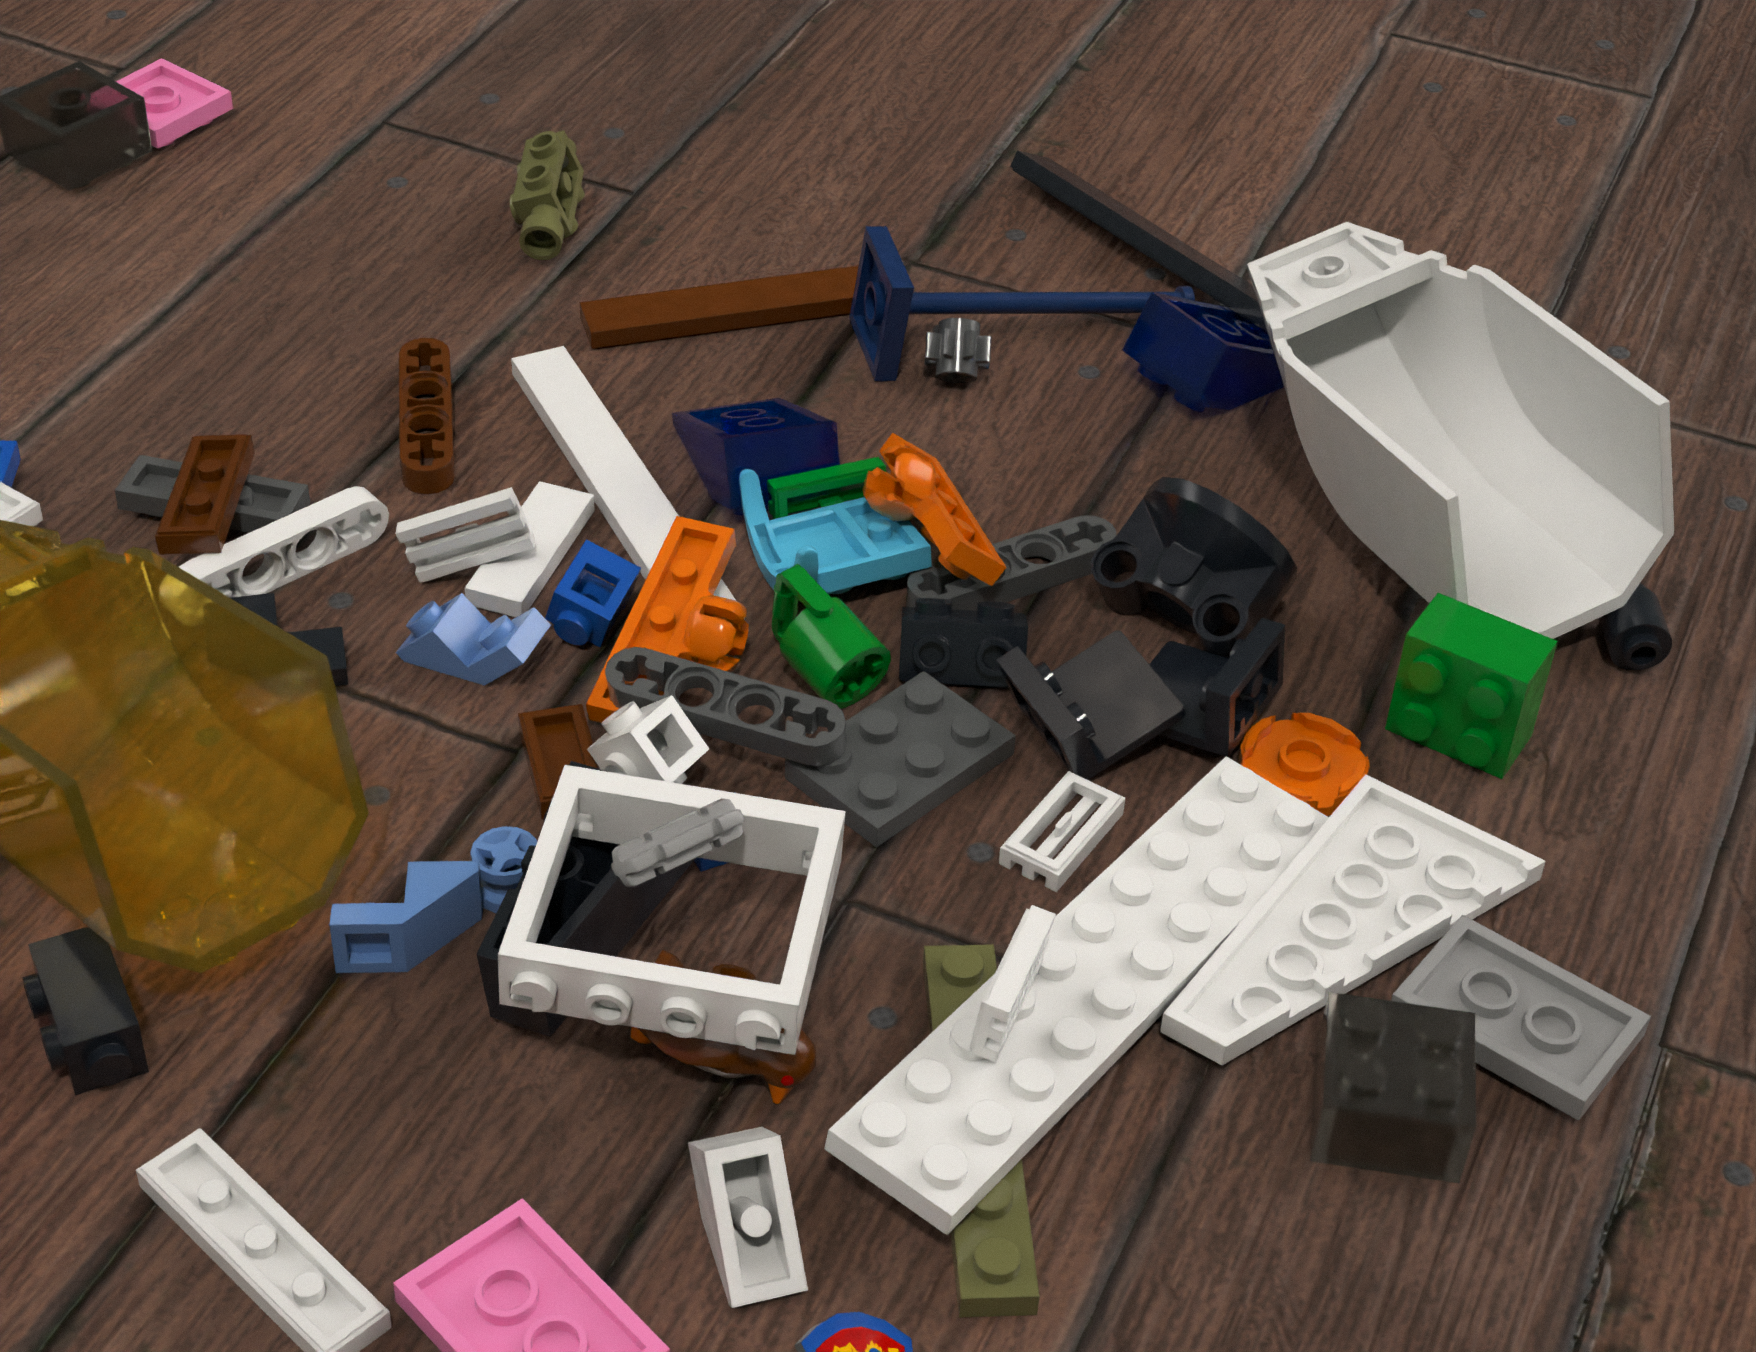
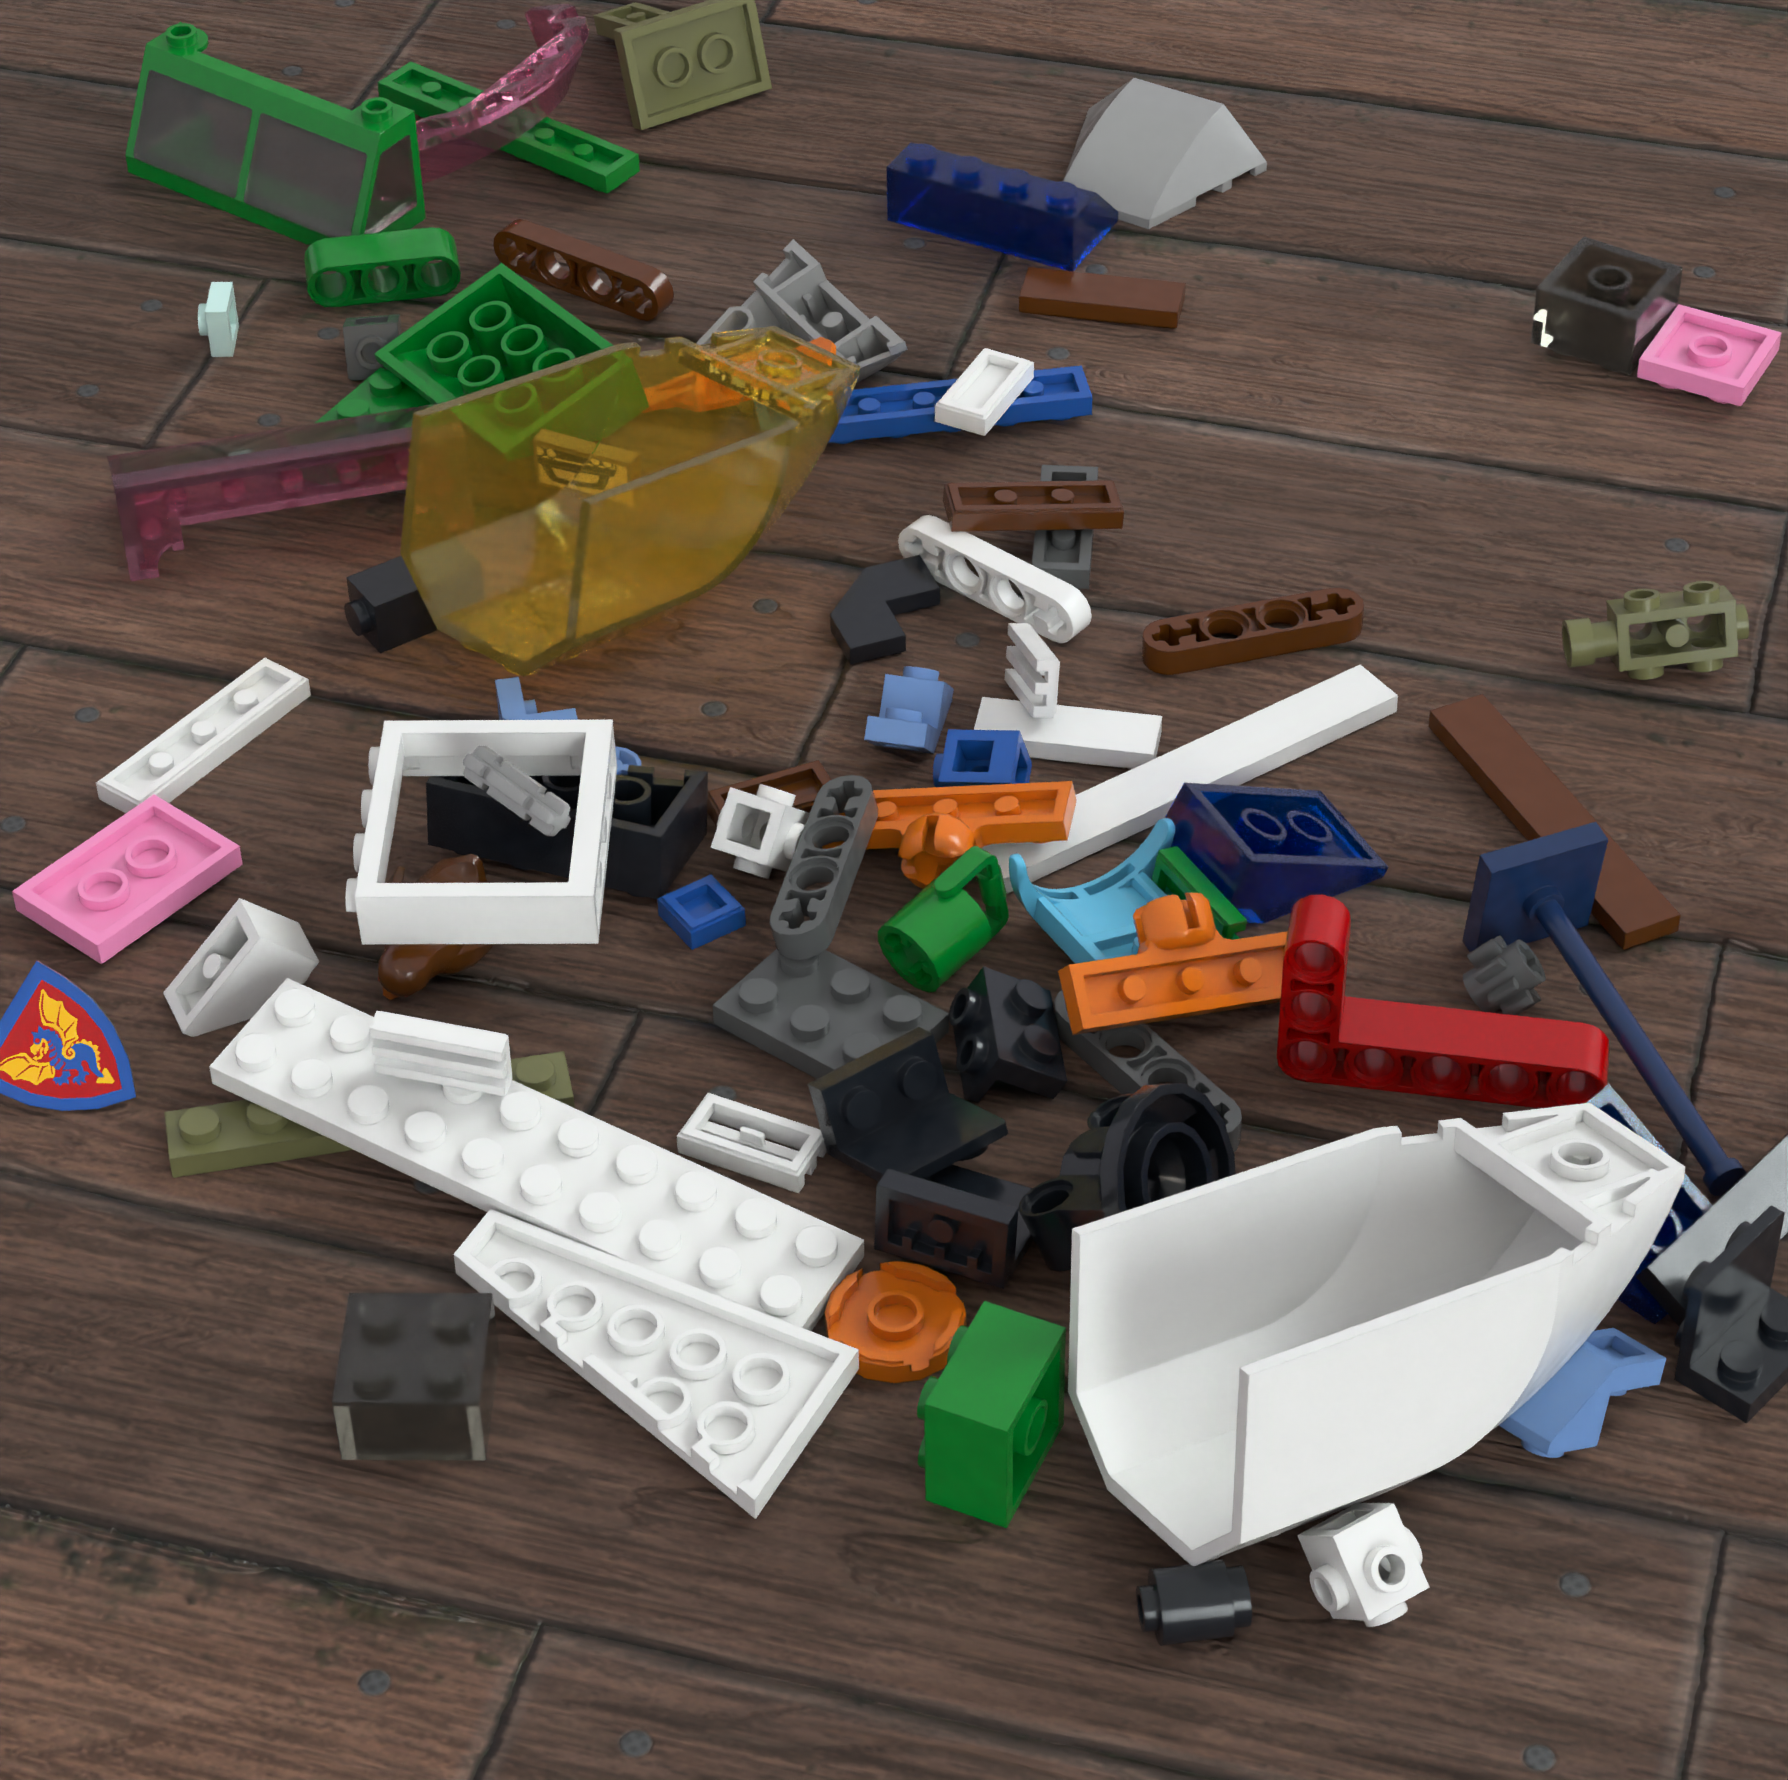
camera: 85 degrees right, 0 degrees up
(1021, 399) = (1416, 1045): none -> red beam
(1530, 1015) = (538, 1486): light grey plate -> none

